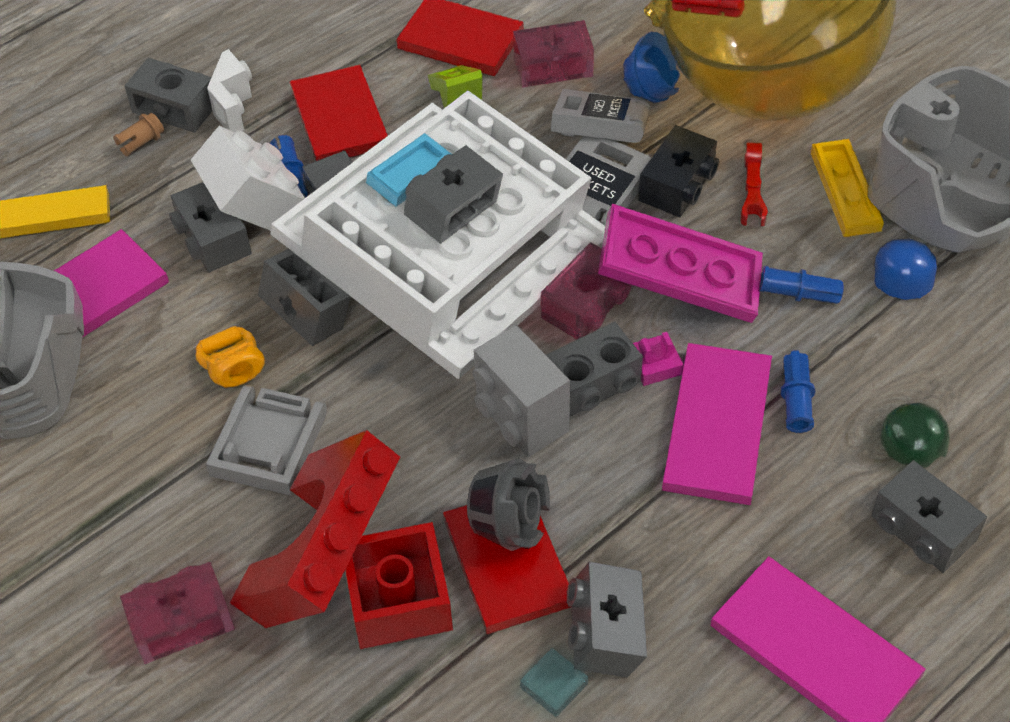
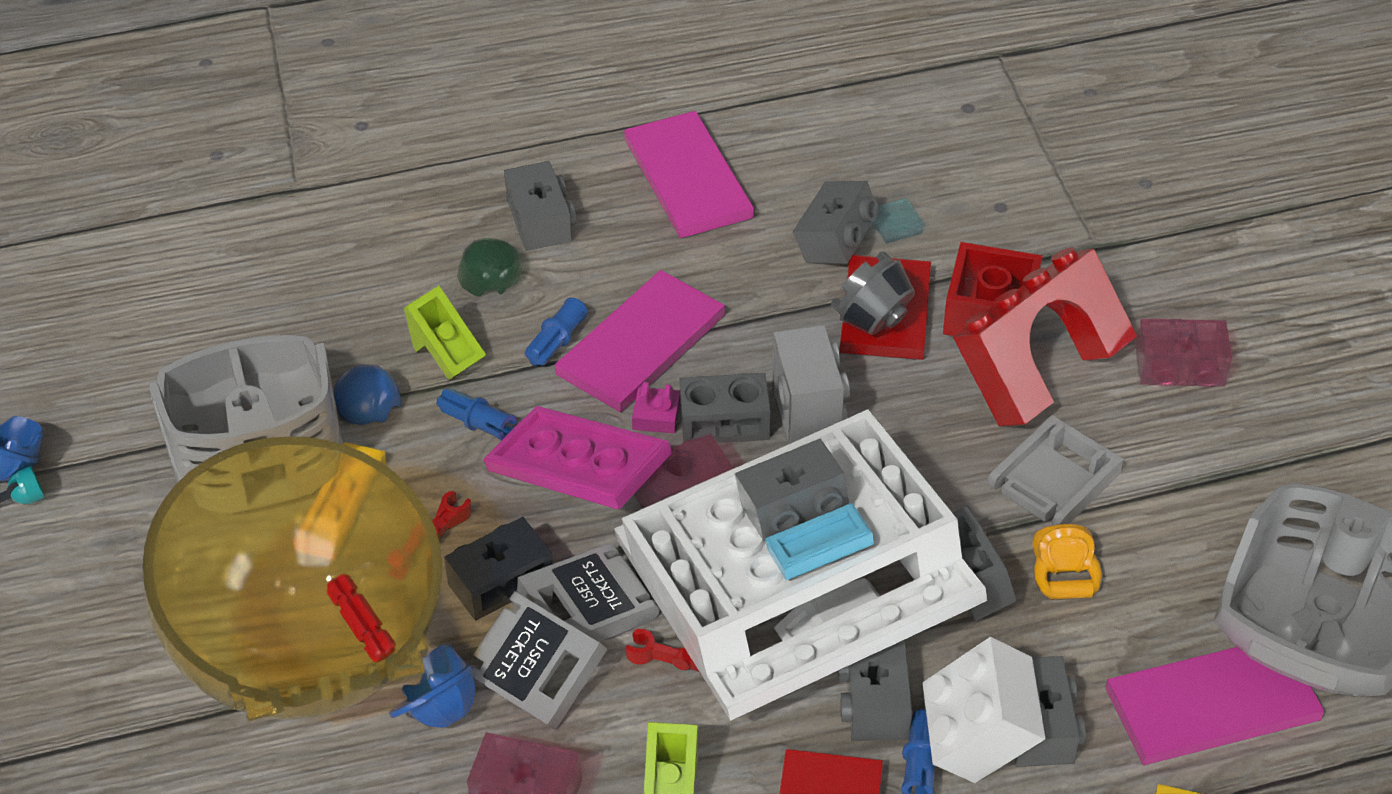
camera: 155 degrees left, 5 degrees down
(887, 326) = (440, 328): none -> lime slope

